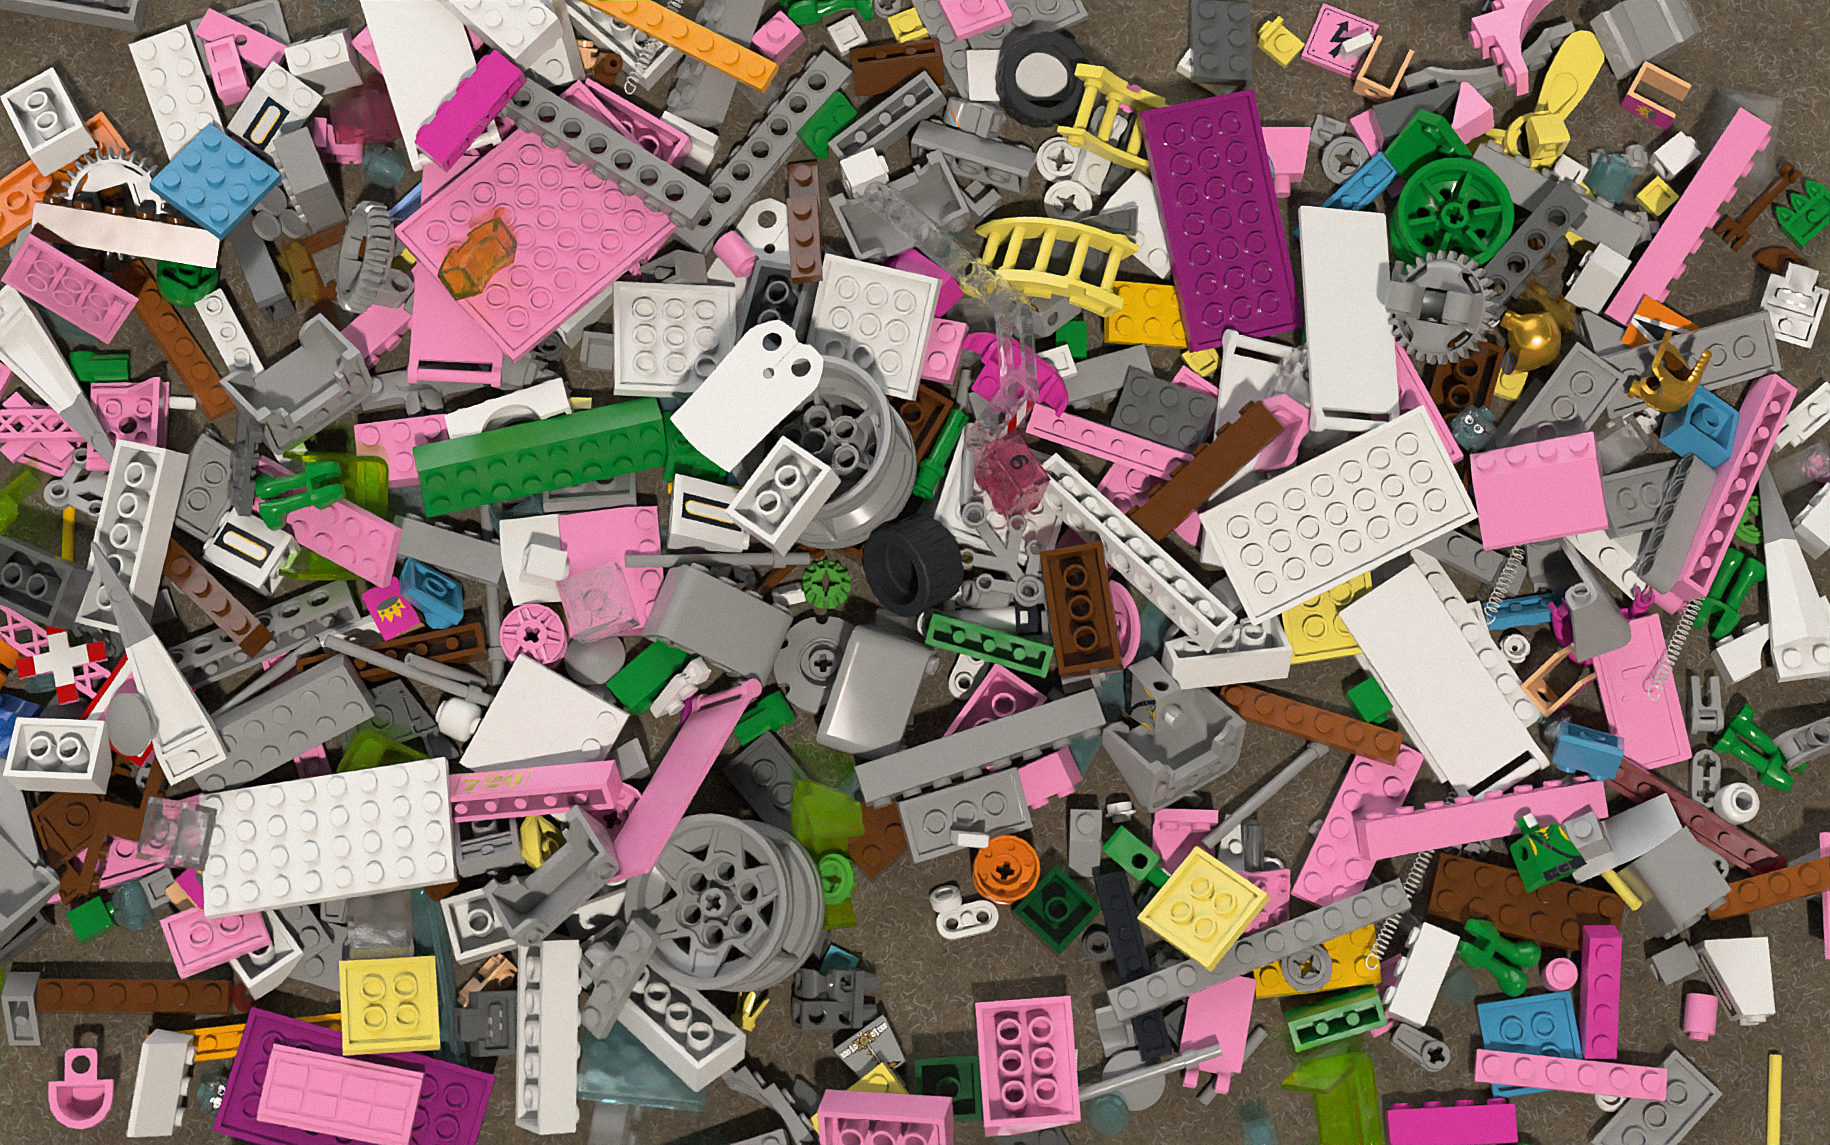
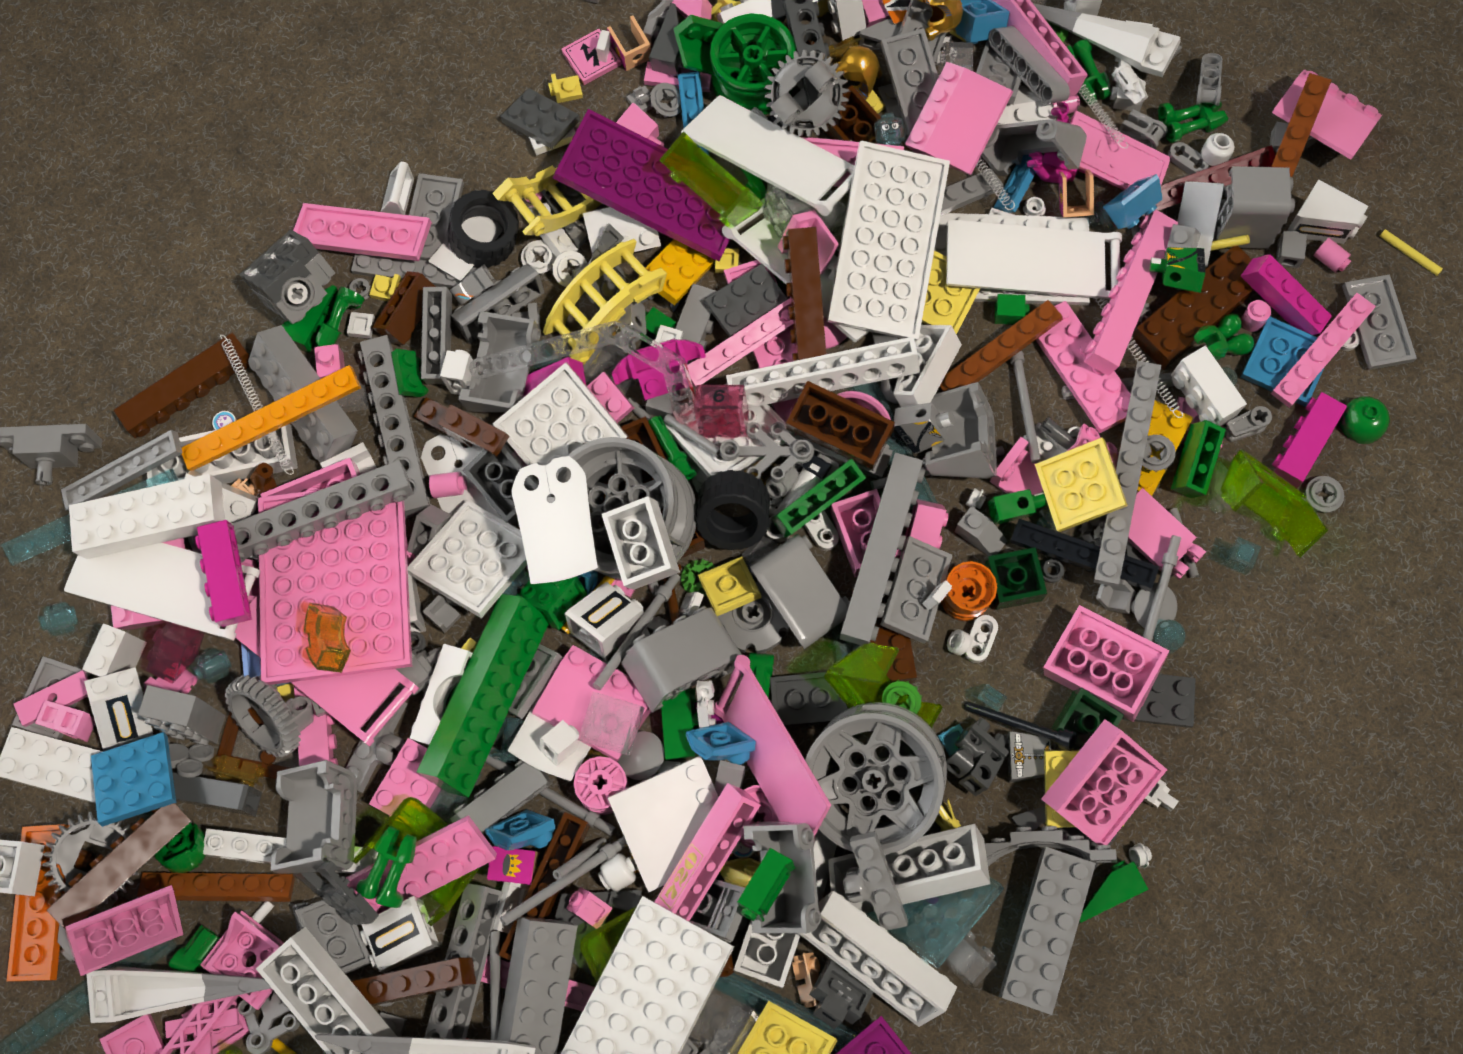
camera: 50 degrees left, 5 degrees down
(402, 715) = (588, 907): none -> bright pink bracket
(533, 867) = (765, 885): none -> green window
(657, 726) = (721, 743): none -> dark azure slope
(831, 618) = (729, 586): none -> light yellow tile
(908, 1073) = (1064, 738): none -> black piece
(910, 973) = (992, 697): none -> clear light blue tile
(1270, 281) = (710, 181): none -> clear neon green windscreen
(1739, 652) = (1130, 83): none -> white hinge

